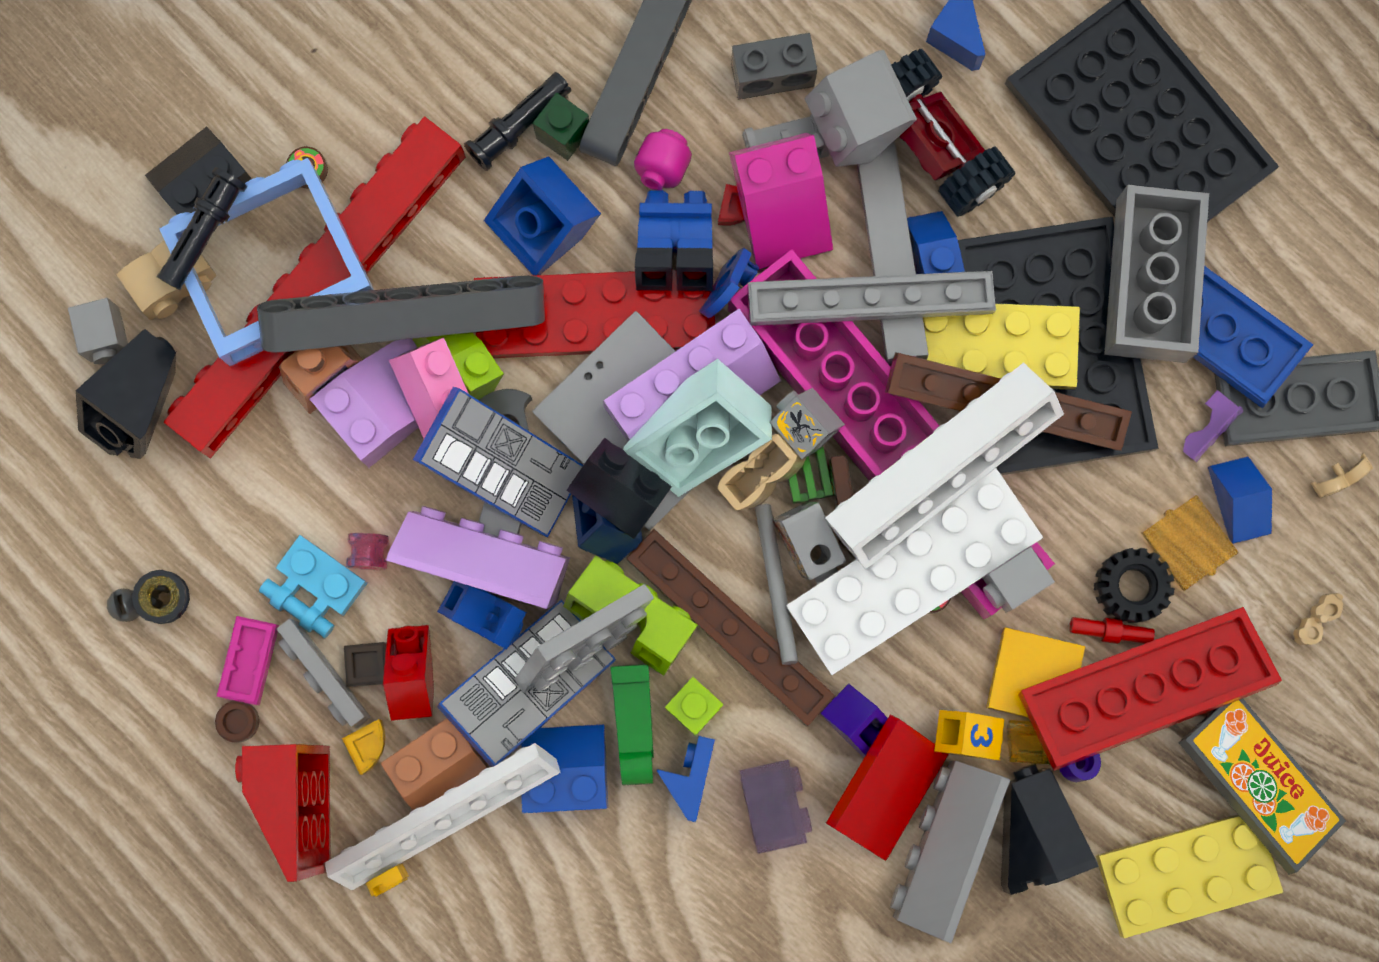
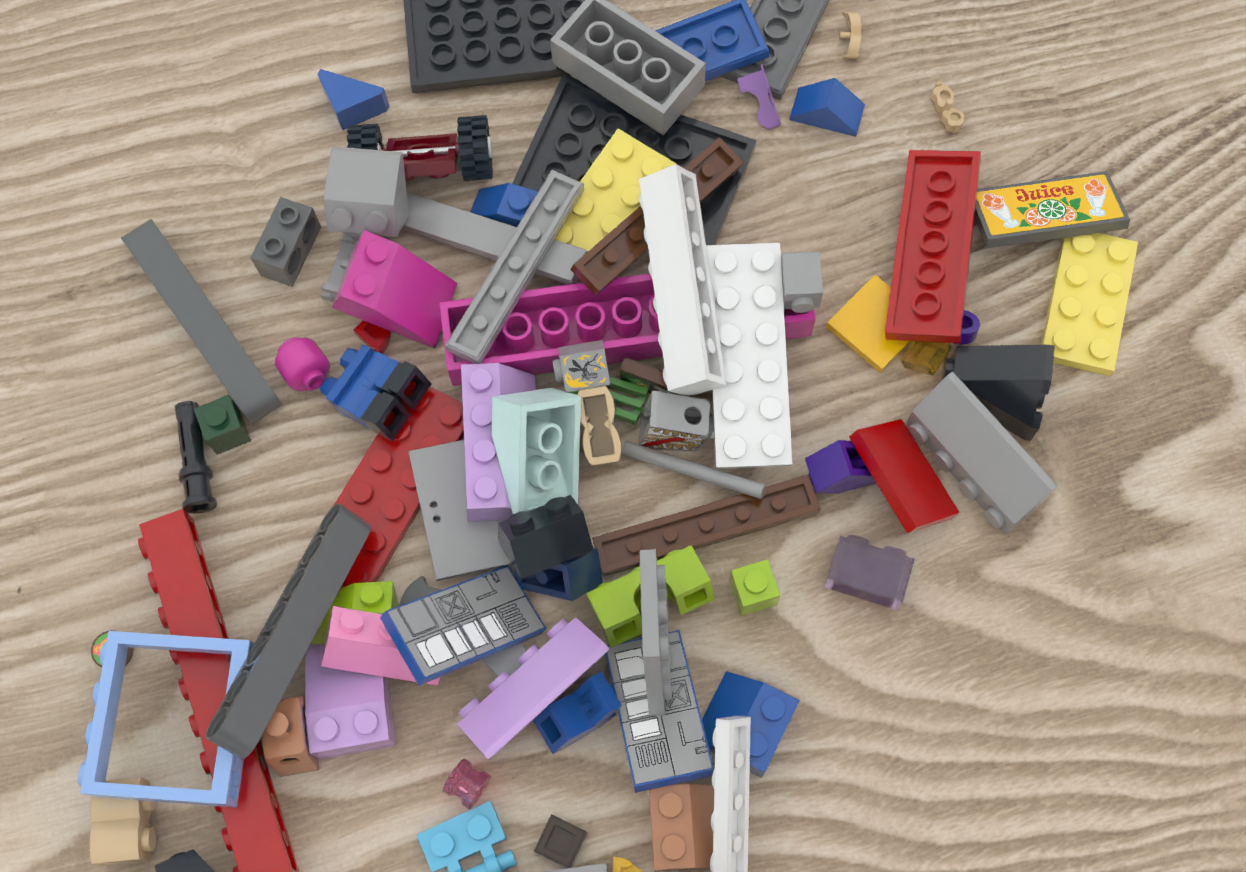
camera: 55 degrees left, 10 degrees down
(189, 170) = (53, 743): black slope -> none
(209, 212) = (97, 736): black pin -> none
(409, 673) = (590, 806): red slope -> none
(541, 215) = (282, 483): blue slope -> none
(633, 723) = (739, 644): green leg -> none
(689, 790) = (818, 629): blue slope -> none
(735, 271) = (435, 368): blue piece -> none
(969, 734) = (896, 391): yellow brick -> none
(1111, 630) = (873, 250): red bar -> none
(1157, 578) = (854, 197): black tyre -> none
(1190, 542) = (838, 162): clear yellow piece -> none

